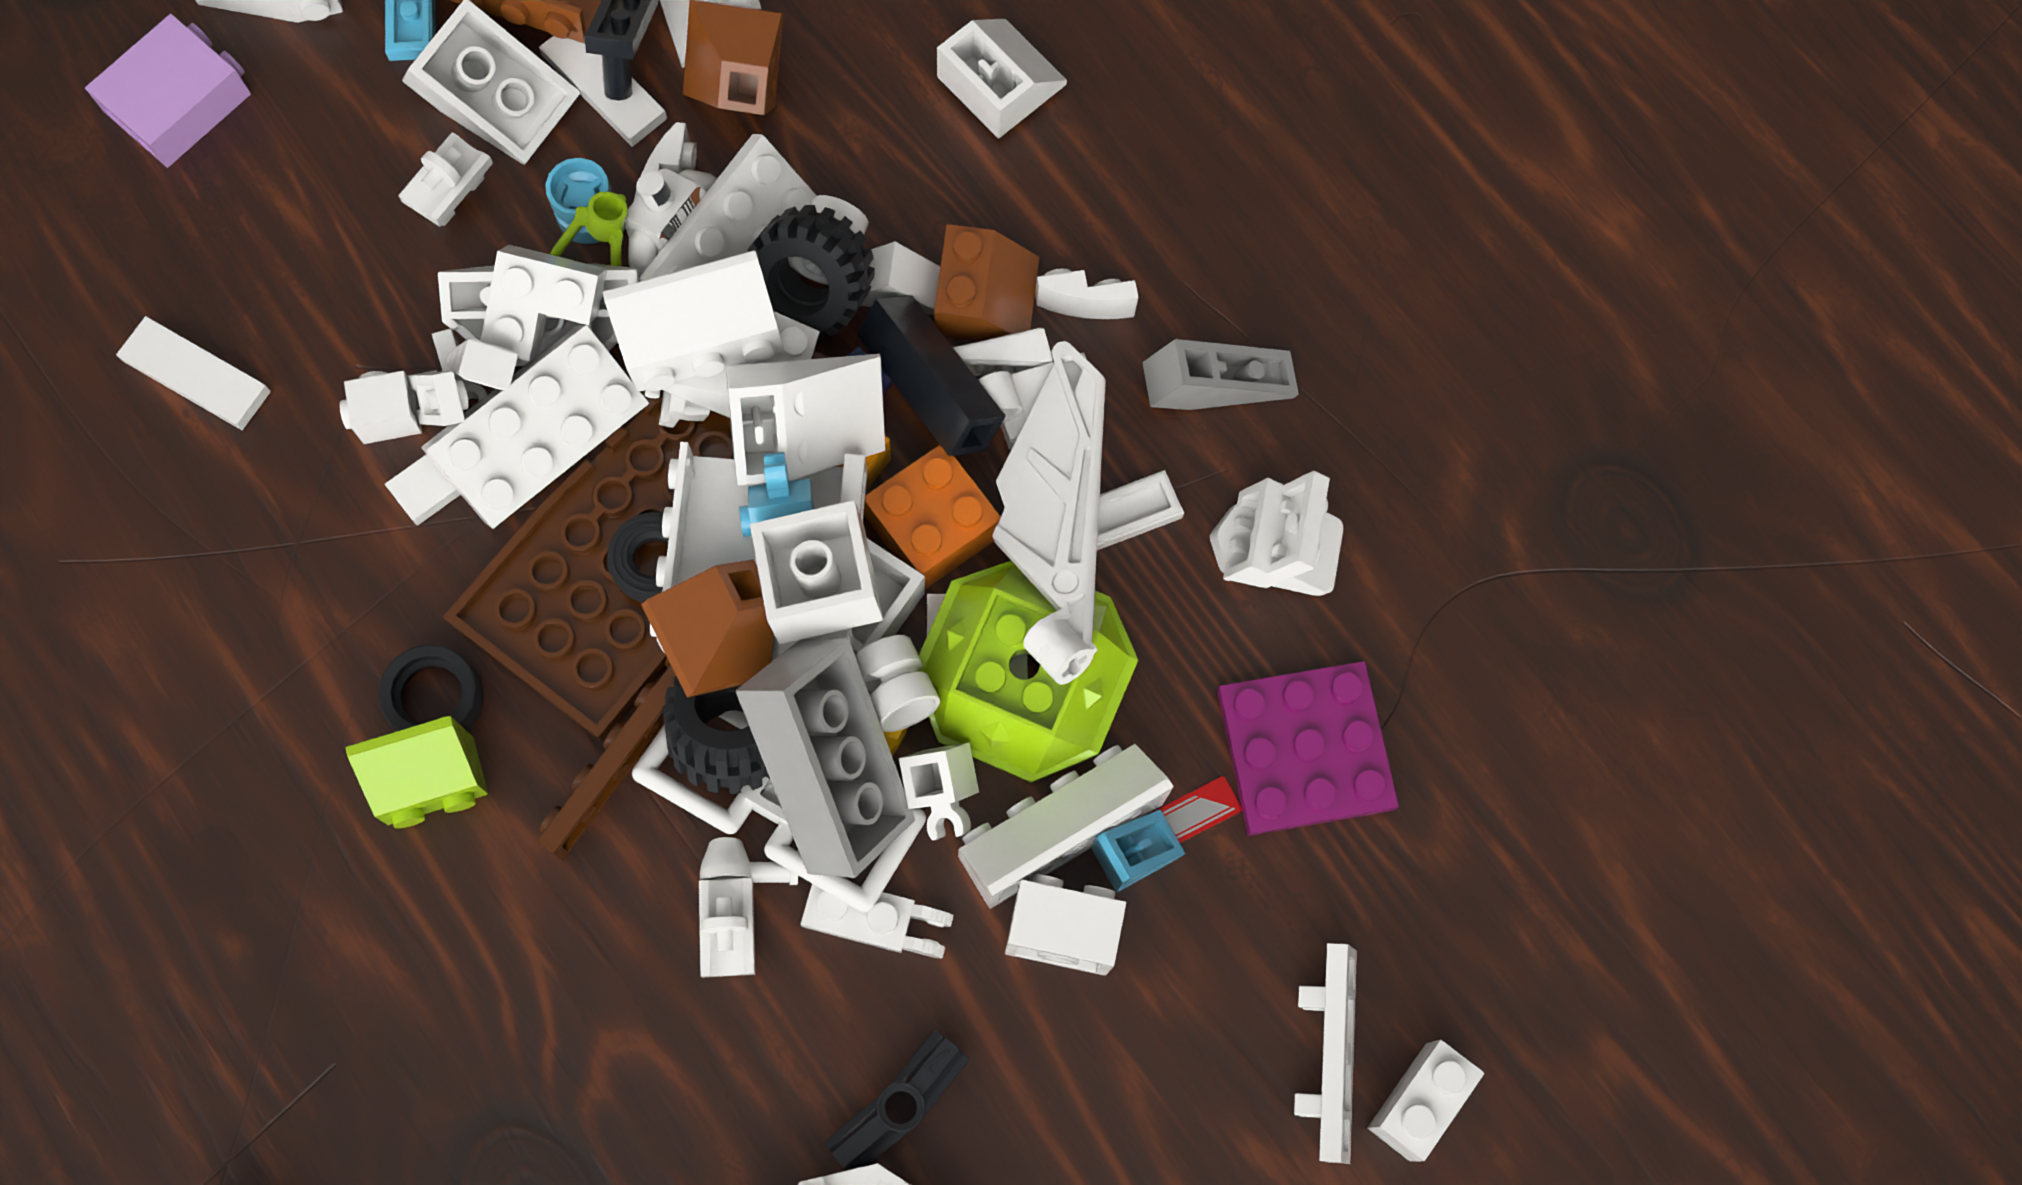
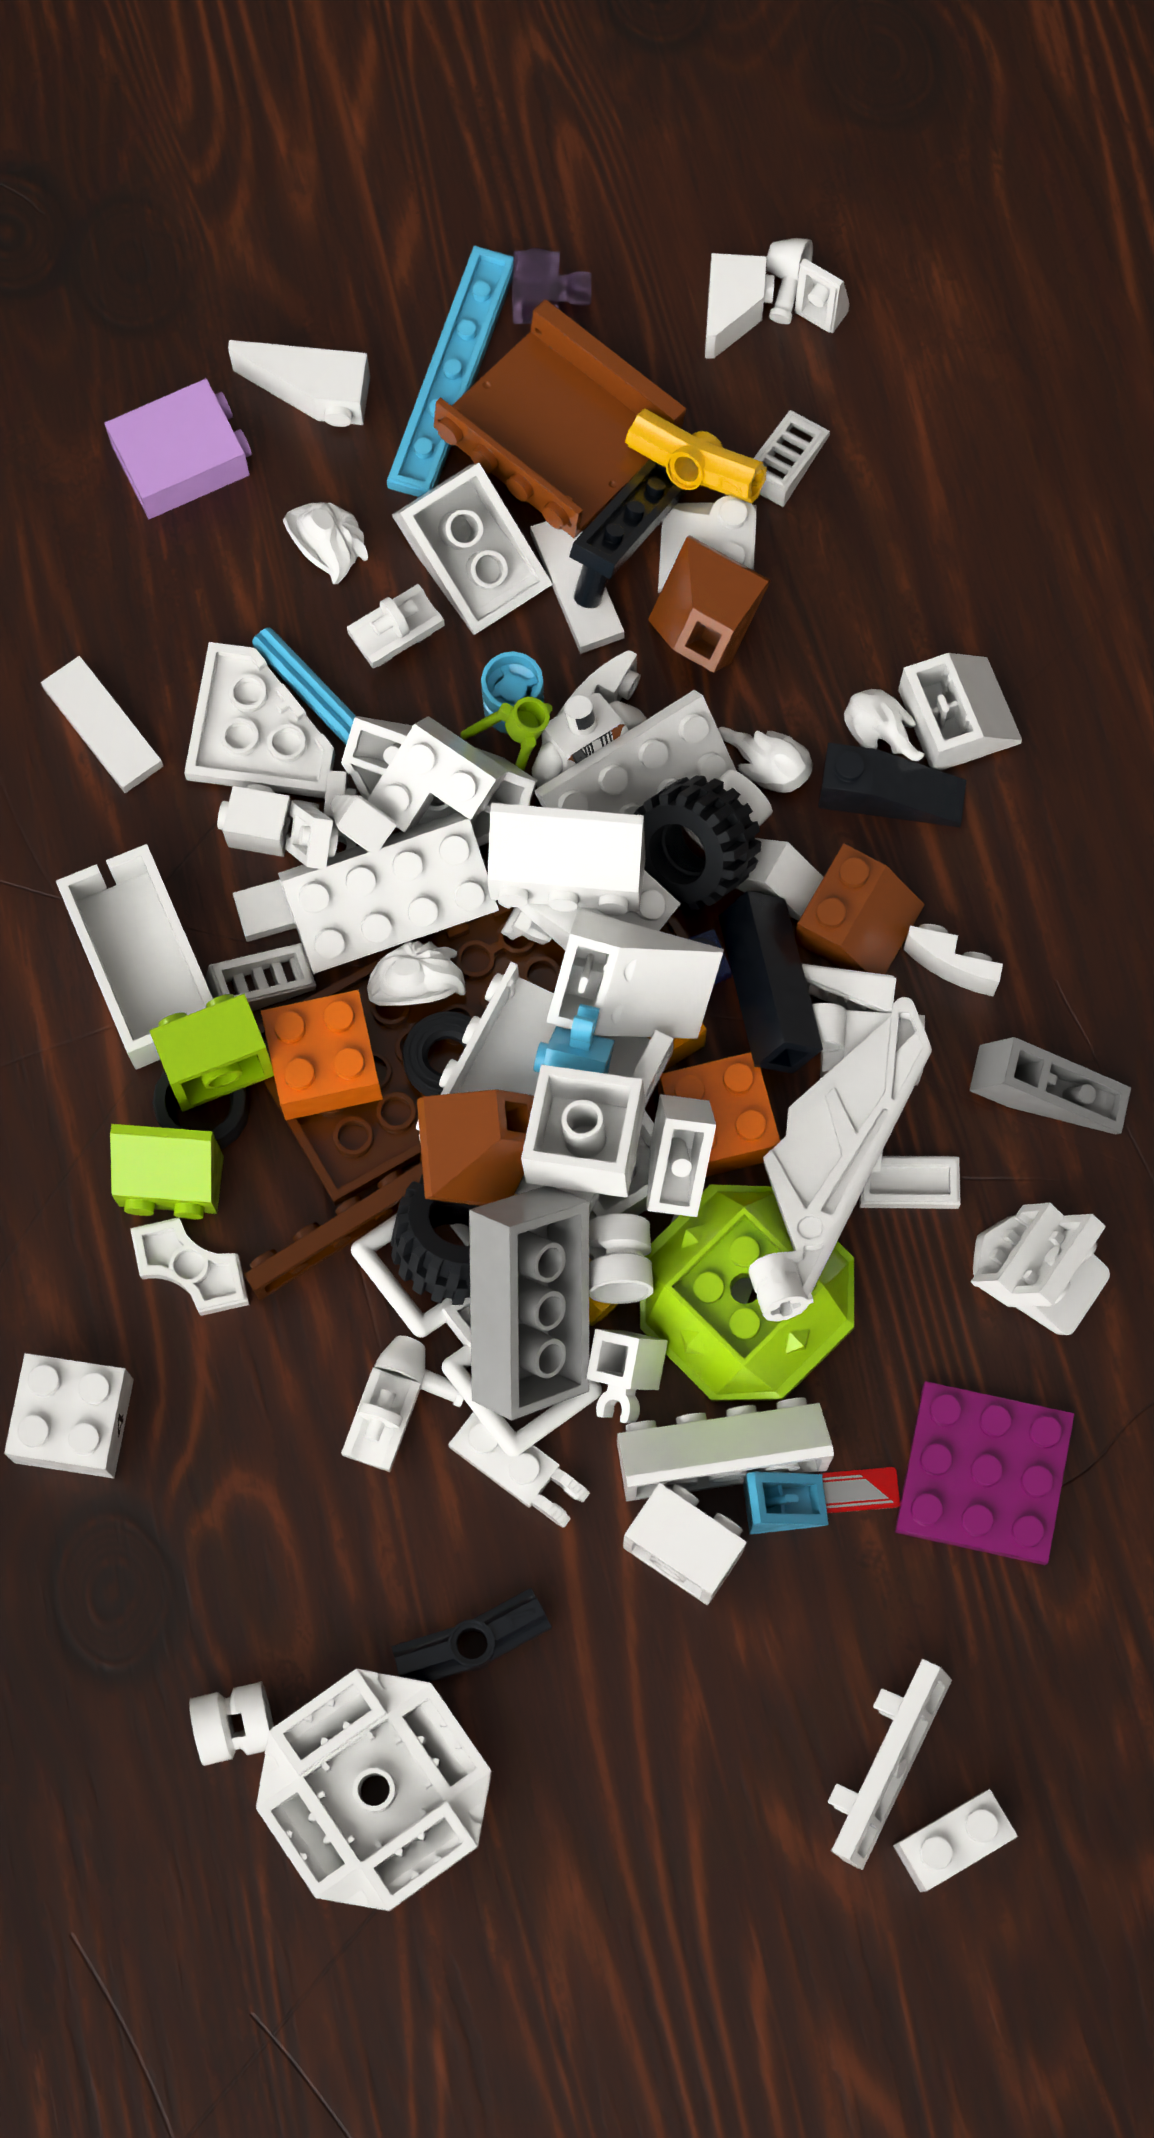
camera: 30 degrees right, 0 degrees up
(315, 577) = (135, 948): none -> white piece
(345, 323) = (254, 729): none -> white plate
(349, 123) = (327, 537): none -> white hat
(377, 263) = (305, 682): none -> medium azure axle
(414, 1049) = (69, 1415): none -> white brick
(419, 638) = (212, 1051): none -> lime brick
(440, 580) = (254, 964): none -> white slope
(456, 851) = (209, 1277): none -> white tile
(530, 602) = (321, 1055): none -> orange brick
(593, 494) = (415, 976): none -> white hat
(850, 174) = (774, 759): none -> white piece
(914, 562) = (679, 1154): none -> white slope
(929, 103) = (880, 716): none -> white piece
(963, 163) = (889, 787): none -> black slope

